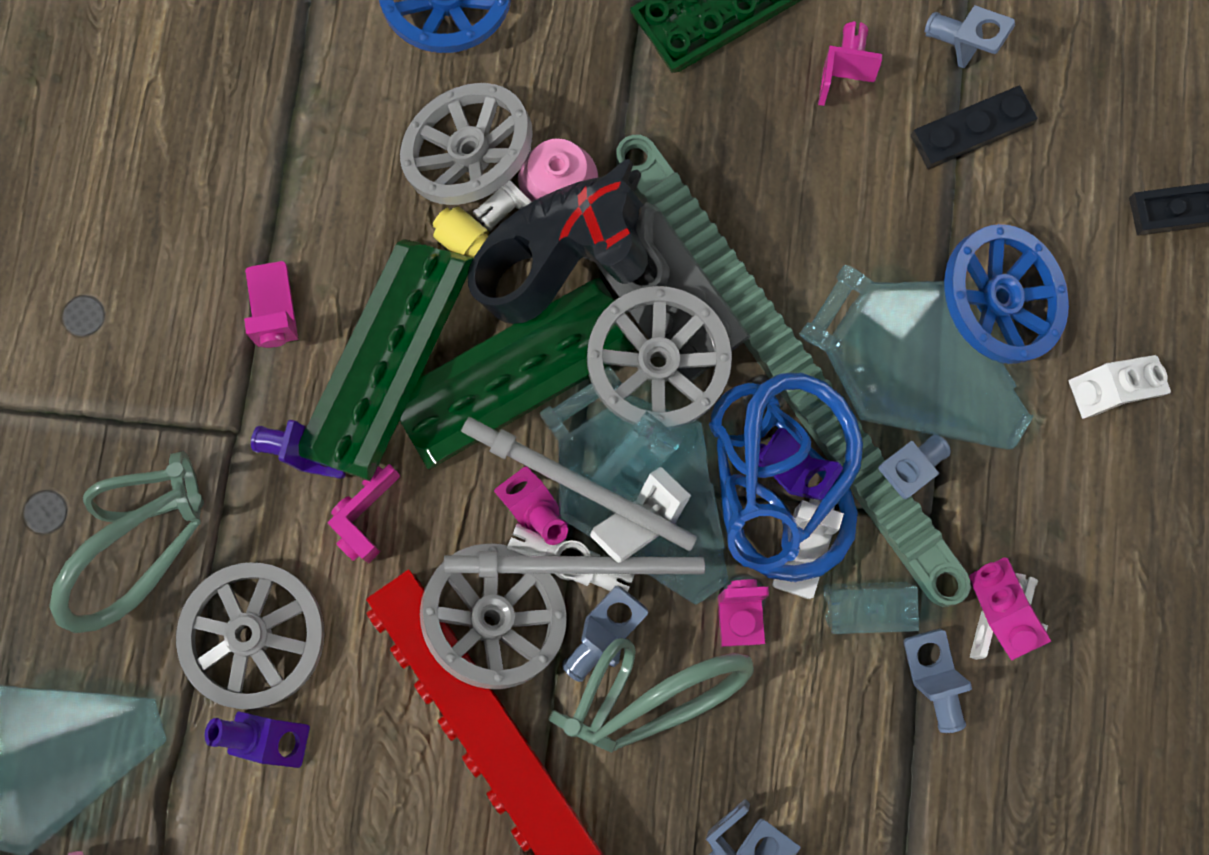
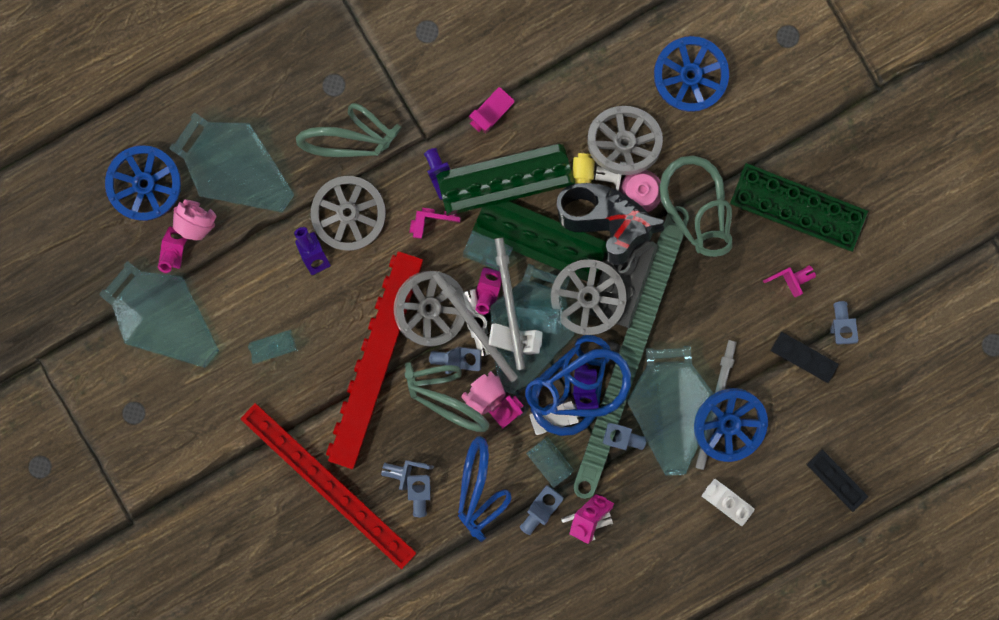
camera: 55 degrees right, 10 degrees up
(469, 469) = (483, 250): none -> clear light blue hinge
(657, 86) = (720, 203): none -> sand green animal
(692, 627) = (485, 394): none -> bright pink cone
(860, 767) = (475, 530): none -> blue animal
(905, 239) = (727, 362): none -> light grey bar

